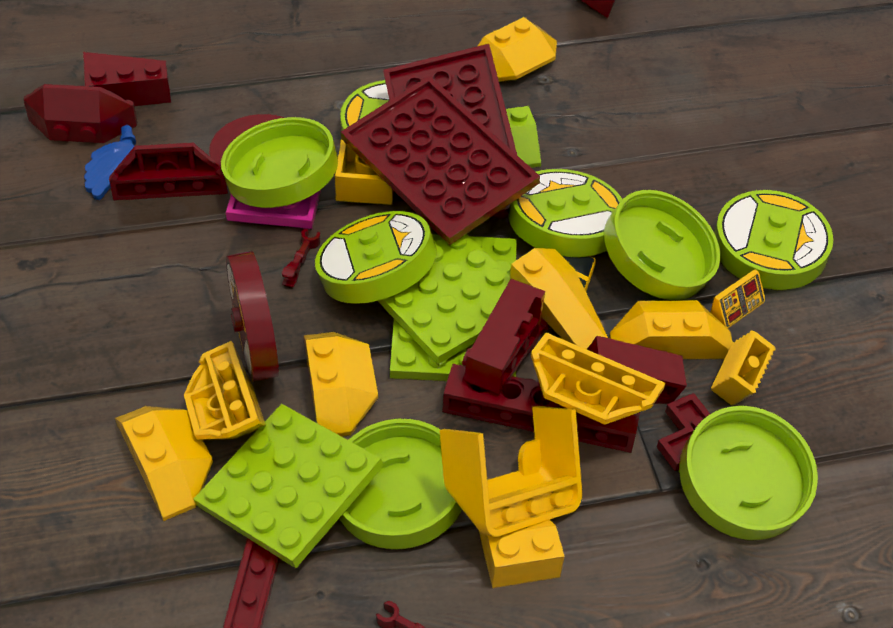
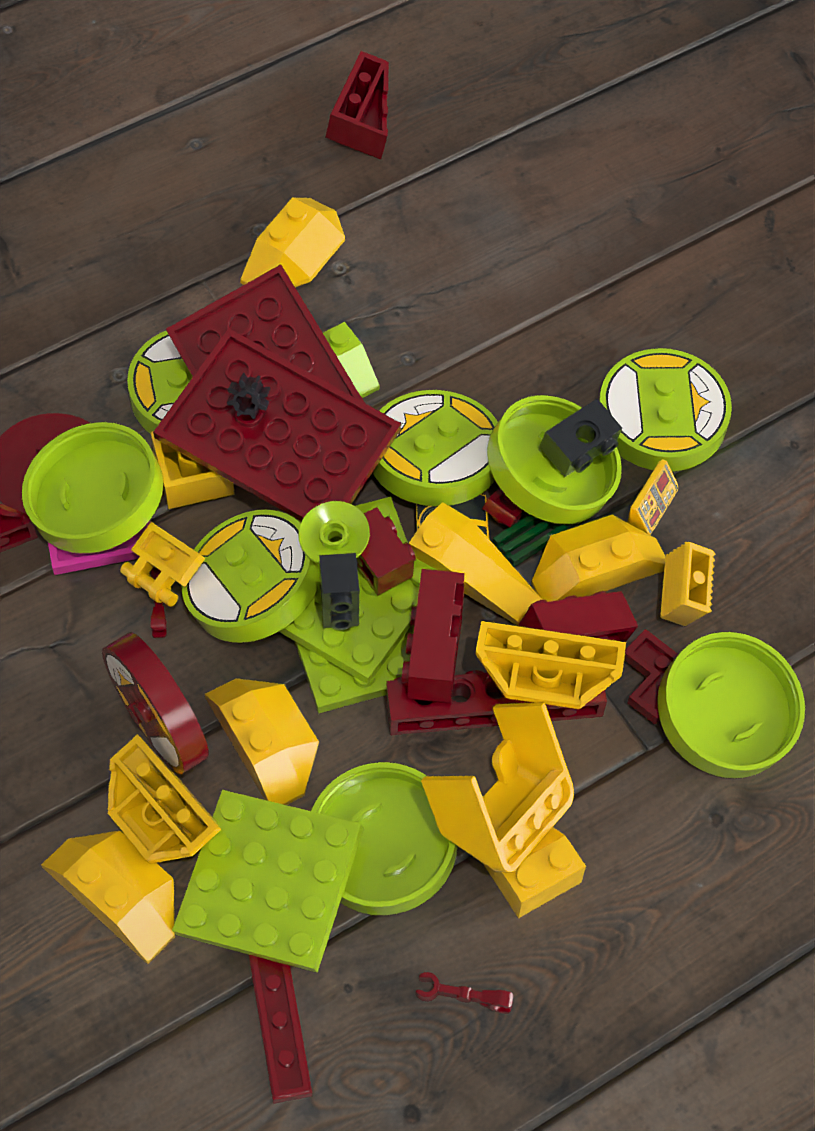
camera: 20 degrees left, 10 degrees up
(318, 230) = (168, 555): none -> yellow plate
(415, 121) = (250, 386): none -> black gear
(436, 277) = (339, 590): none -> black brick
(449, 234) = (333, 520): none -> lime dish
(483, 262) = (385, 559): none -> dark red brick
(606, 272) = (503, 509): none -> dark red plate
(616, 295) = (520, 528): none -> dark green tile
(689, 231) = (590, 423): none -> black brick

